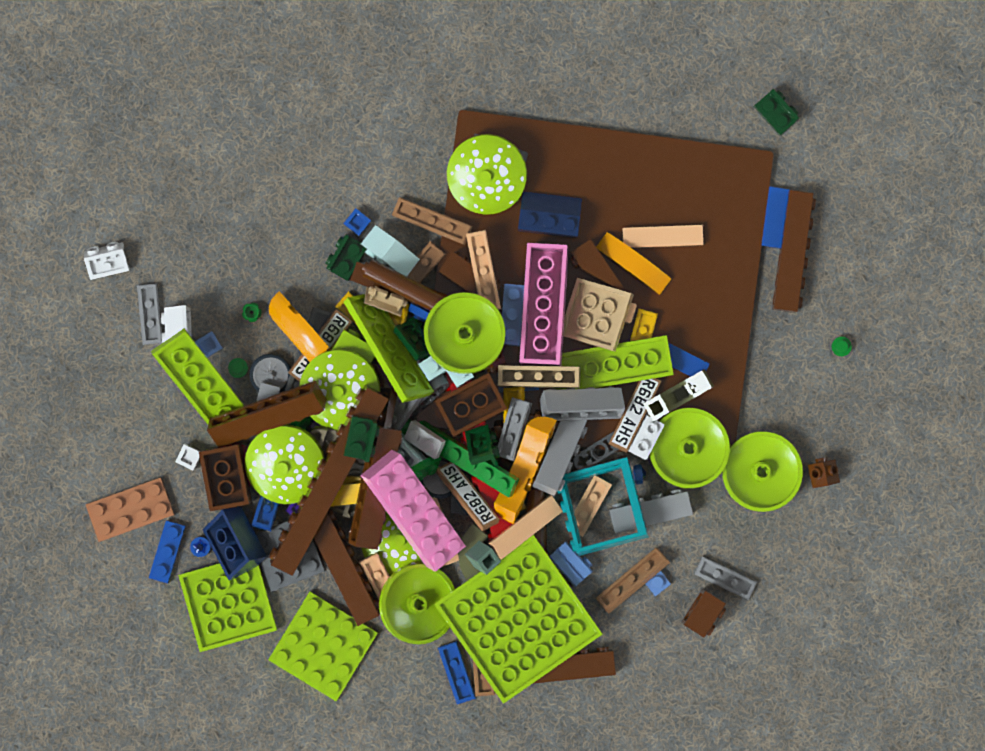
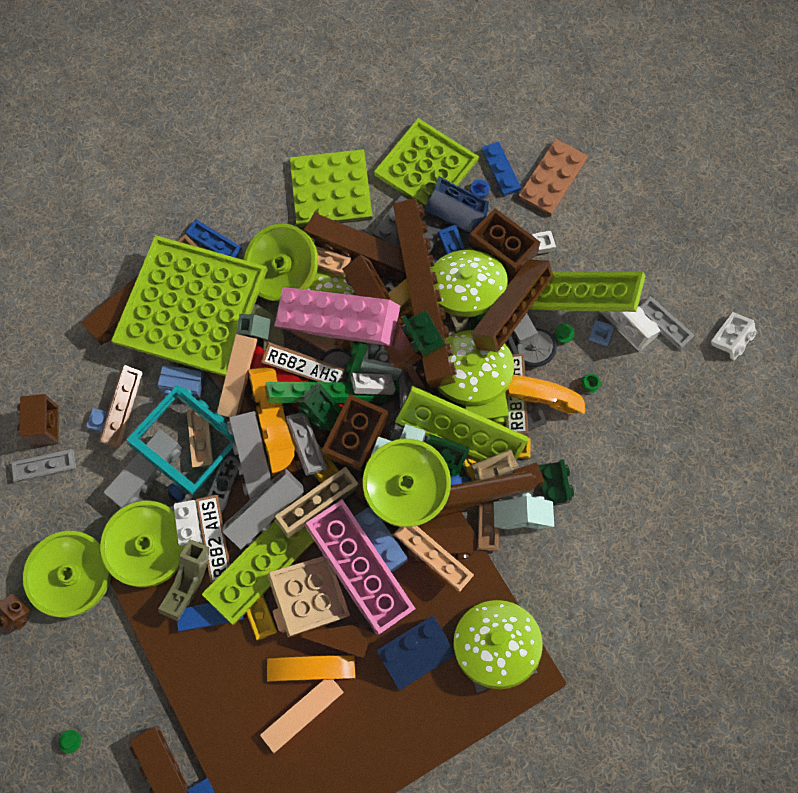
camera: 140 degrees right, 15 degrees down
(357, 222) = (570, 519): blue plate -> none
(431, 220) = (511, 568): medium nougat tile -> none

